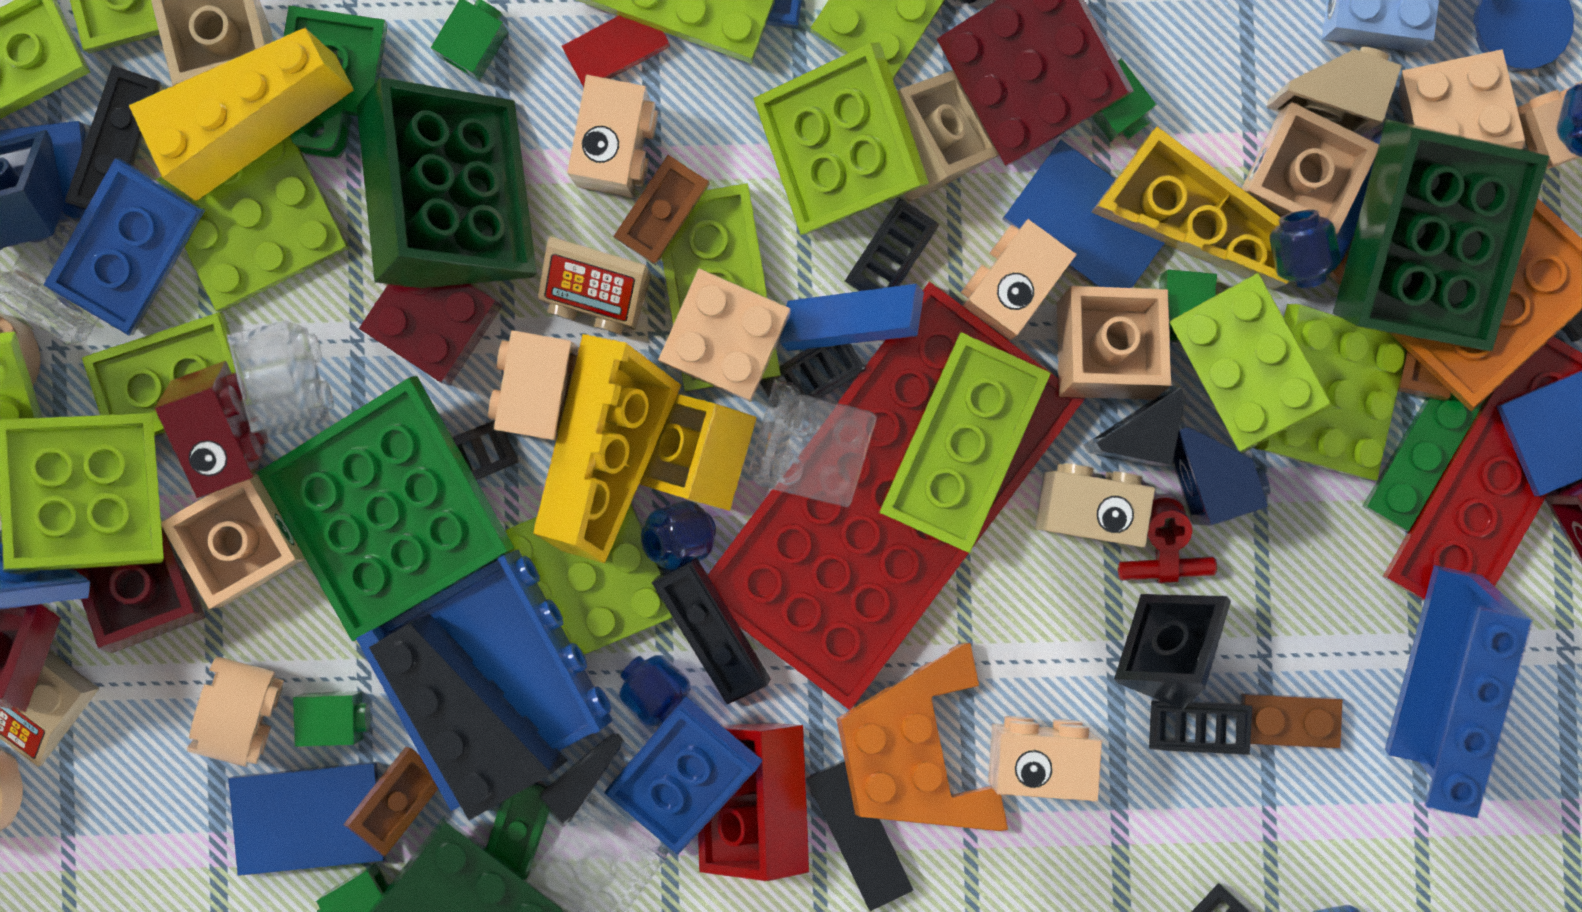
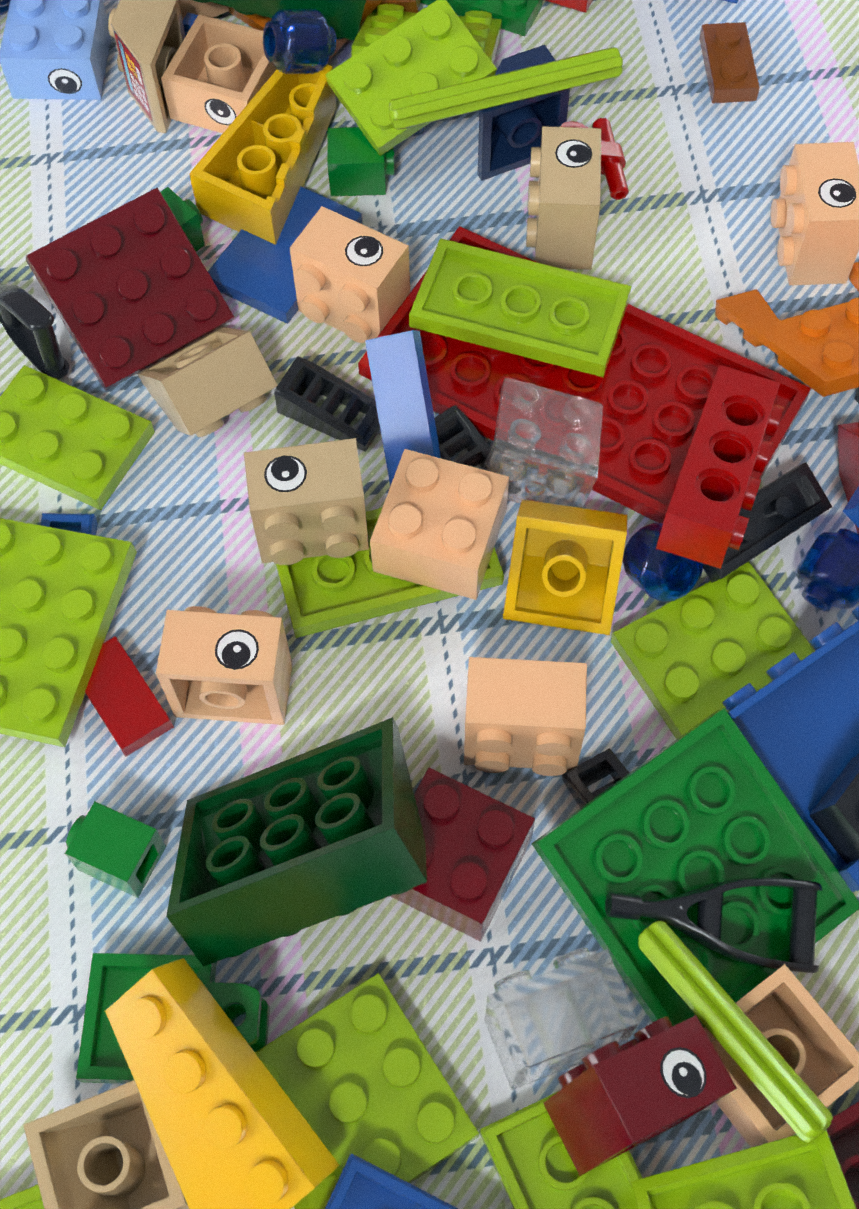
camera: 95 degrees left, 25 degrees down
(244, 505) = (735, 1032): none -> lime axle
(351, 511) = (709, 918): none -> black piece
(593, 285) = (397, 668): slope -> none
(602, 446) = (610, 631): yellow wedge -> none
(661, 209) = (307, 606): dark orange plate -> none
(747, 215) = (307, 501): none -> tan brick
(823, 621) = (719, 467): none -> red brick
(840, 139) = (195, 433): lime plate -> none
(1113, 343) = (406, 192): light nougat brick -> none
(1146, 434) = (482, 165): black slope -> none
(1157, 733) = (753, 148): black slope -> none
(1172, 646) = (685, 125): black slope -> none
(1200, 455) = (505, 88): none -> lime axle

